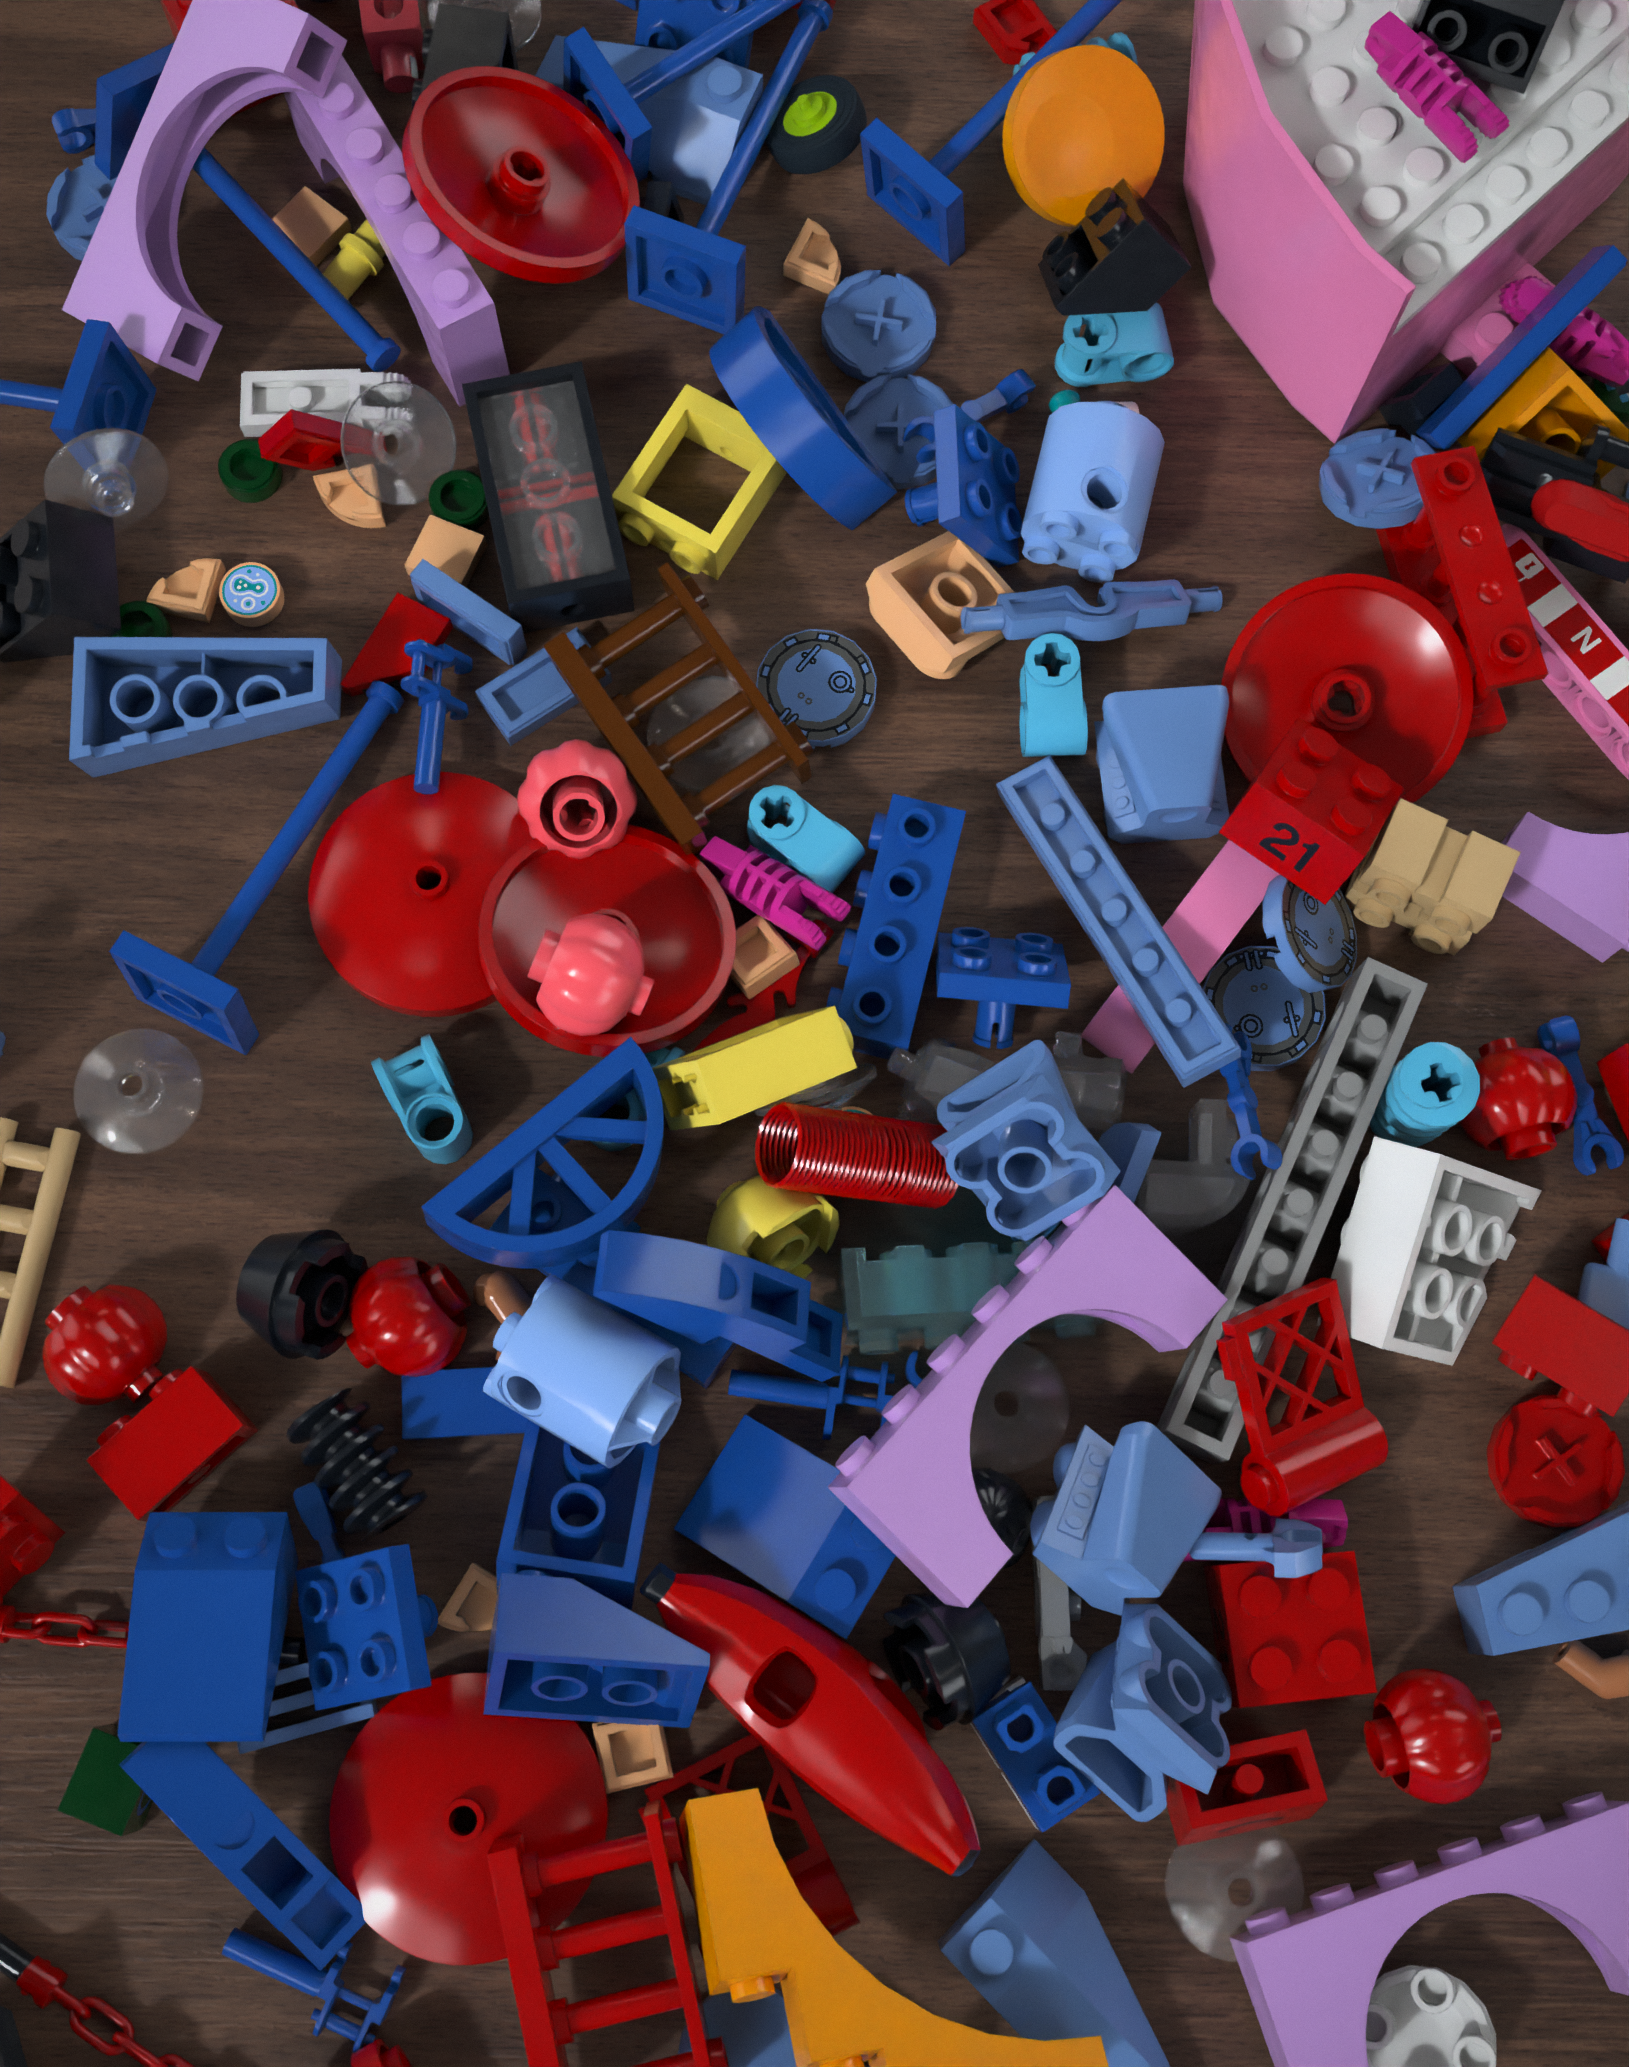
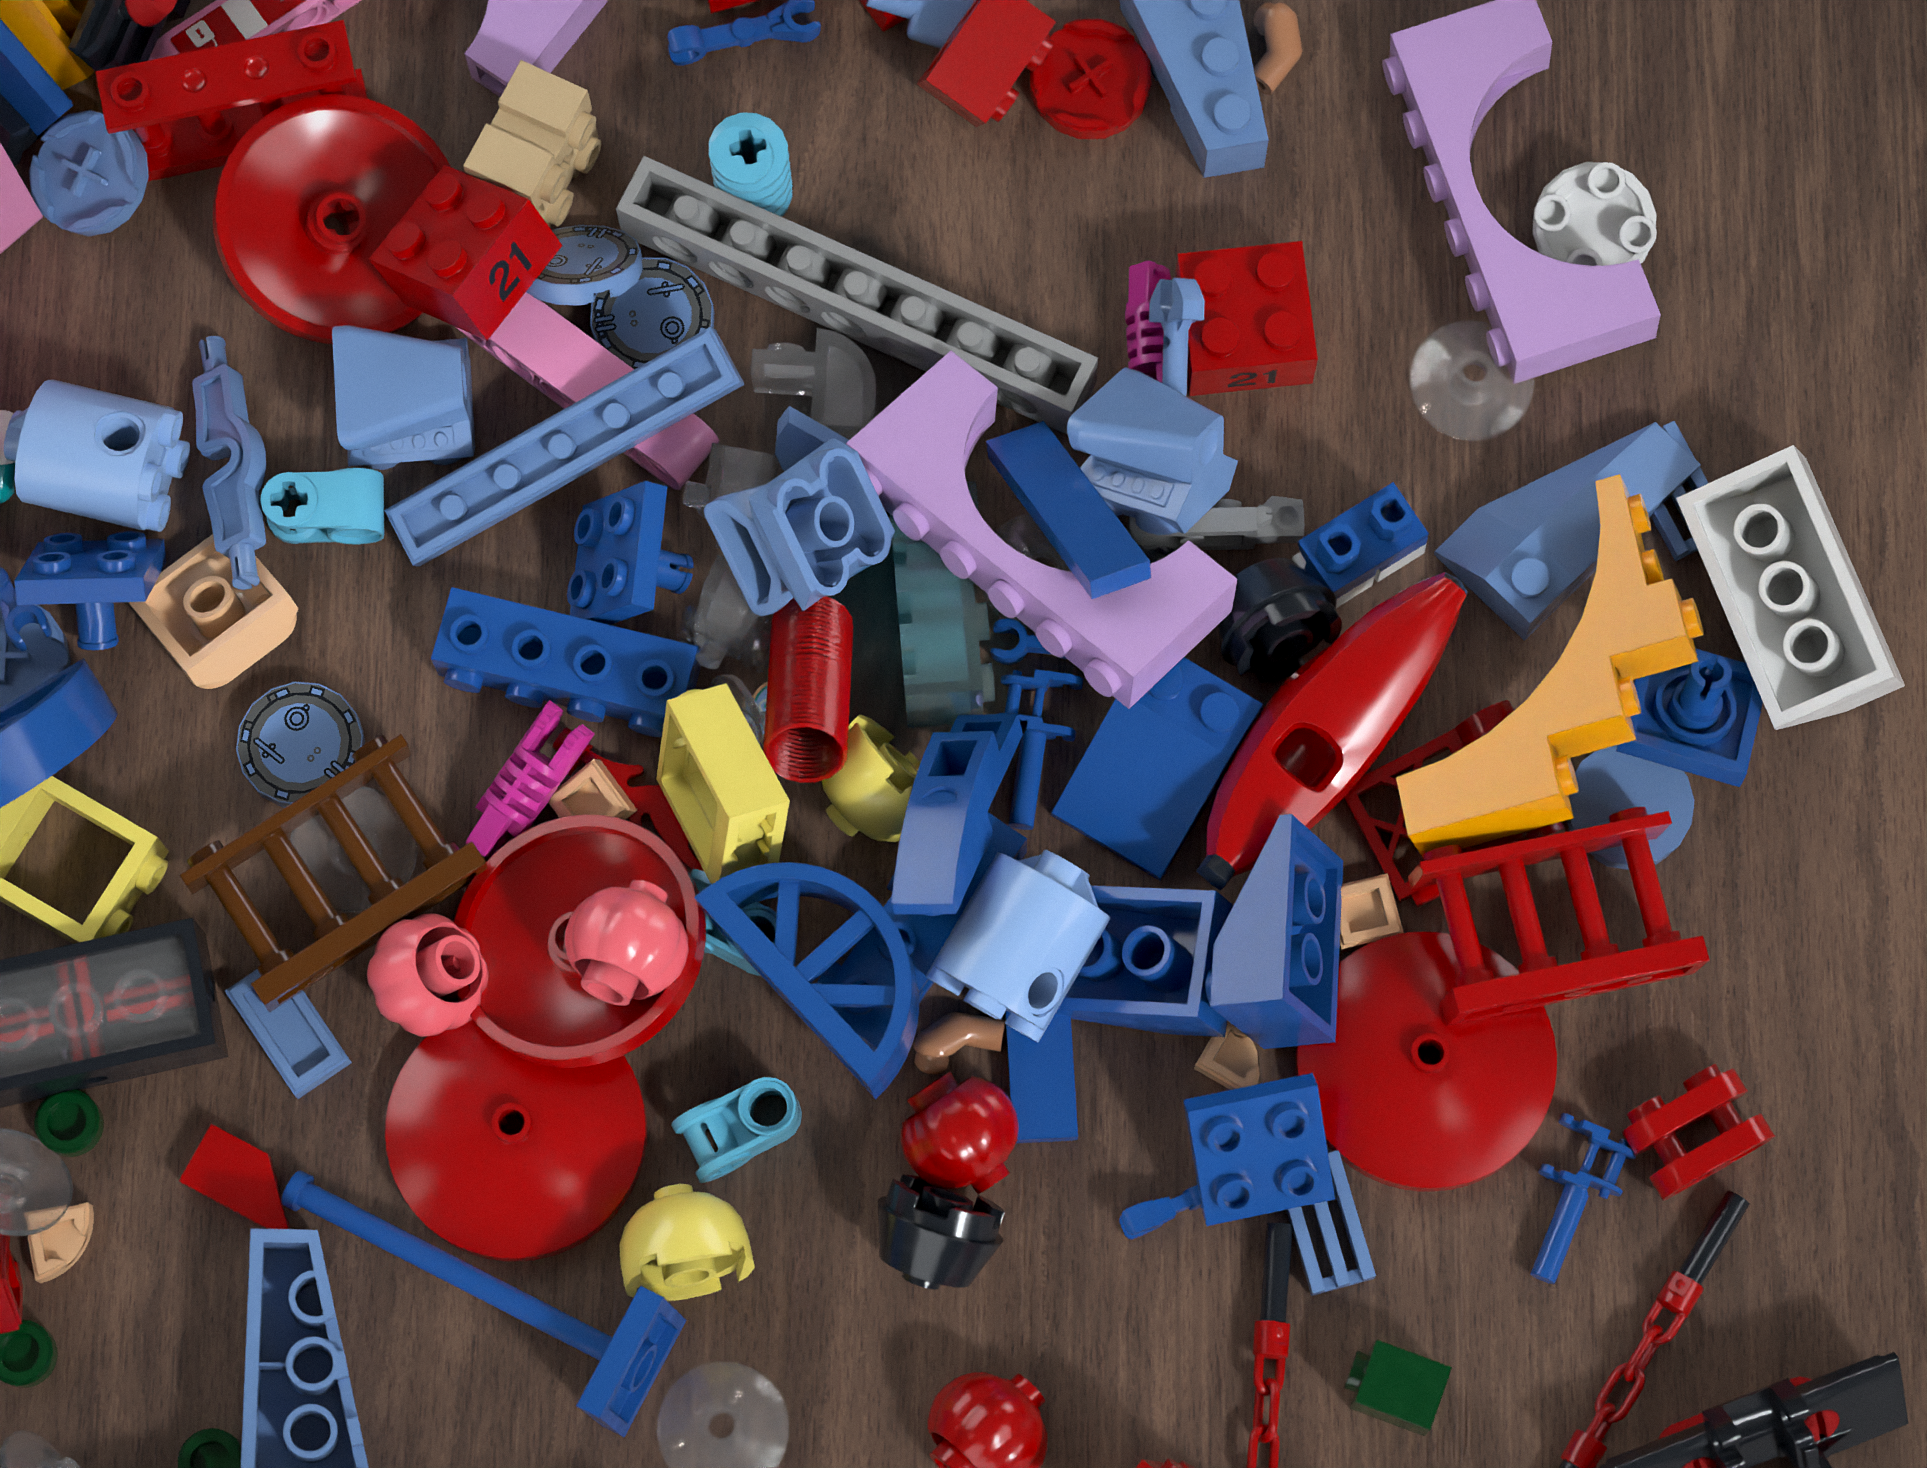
camera: 85 degrees left, 0 degrees up
(170, 1442) = (1083, 1358): red brick -> none
(190, 591) = (163, 1410): light nougat tile -> none
(206, 1626) = (1259, 1294): blue slope -> none
(248, 1845) = (1449, 1251): blue slope -> none
(251, 594) = (172, 1341): tile -> none
(306, 1042) = (683, 1244): none -> light yellow cylinder
(354, 1465) = (1106, 1171): black piece -> none
(434, 704) = (314, 1130): blue piece -> none
(448, 548) = (133, 1134): light nougat tile -> none
(469, 613) = (208, 1101): medium blue tile -> none
(808, 842) = (476, 750): medium azure piece -> none
(1045, 1424) = (1068, 510): none -> blue tile
(1147, 1714) = (1322, 439): medium blue piece -> none
(1244, 1104) = (758, 332): blue piece -> none
(1259, 1788) = (1386, 363): red brick -> none
(1310, 1447) = (1075, 280): red piece -> none
(1422, 1248) = (897, 185): white wedge -> none
(1431, 1735) = (1337, 199): red plant -> none
(1521, 1100) = (748, 76): red plant -> none

